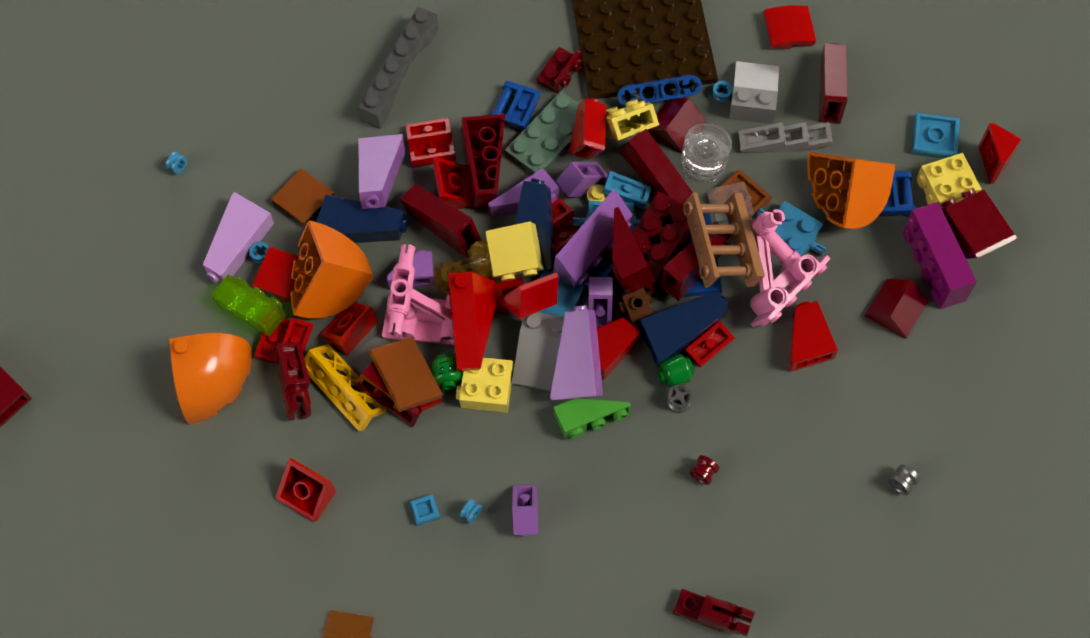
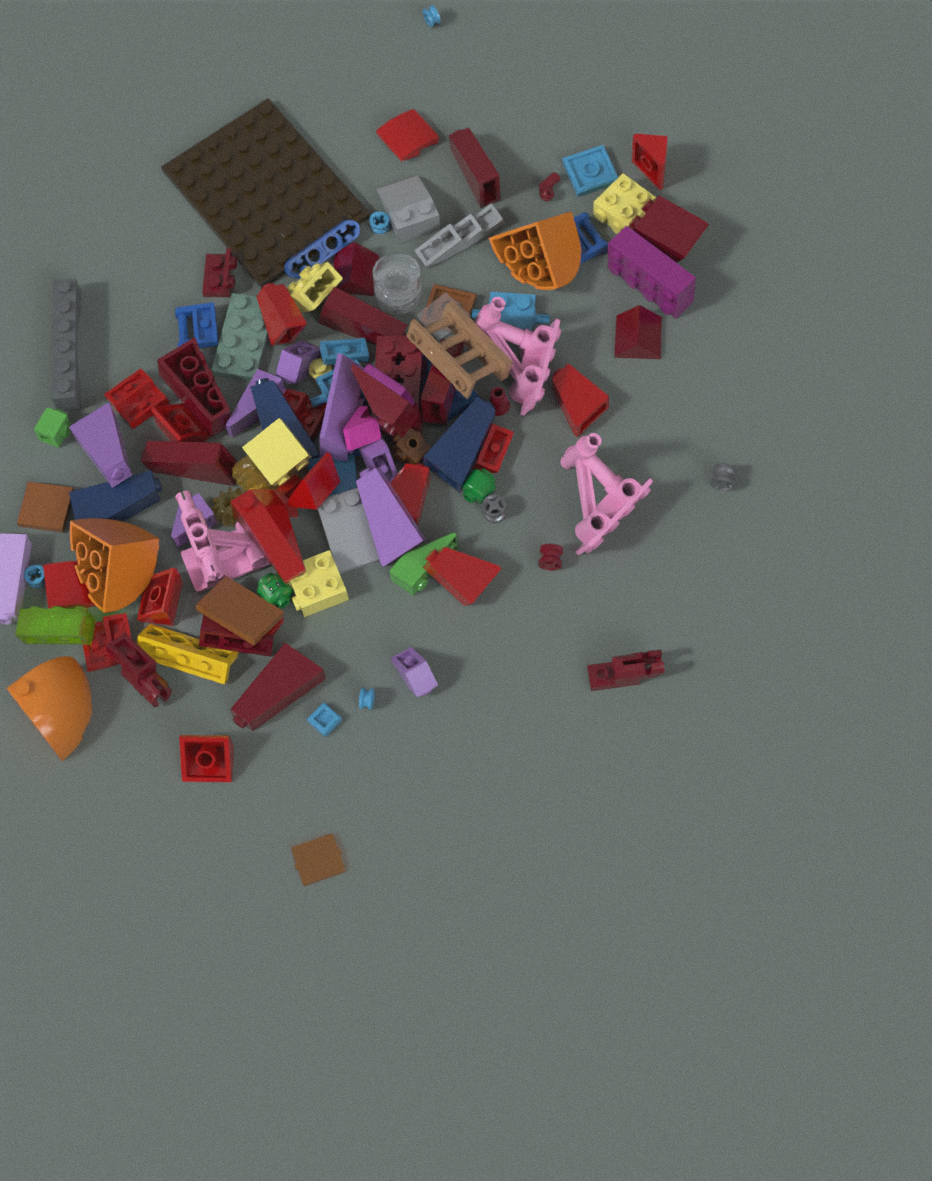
camera: 25 degrees left, 0 degrees up
(347, 131) = (53, 427): none -> bright green brick
(400, 458) = (276, 687): none -> dark red slope
(597, 267) = (361, 429): none -> dark pink slope
(614, 443) = (460, 573): none -> red slope
(641, 241) = (388, 382): none -> magenta tile
(737, 303) = (499, 400): none -> dark red cone
(785, 453) = (616, 504): none -> bright pink plate
(886, 132) = (546, 186): none -> dark red arm

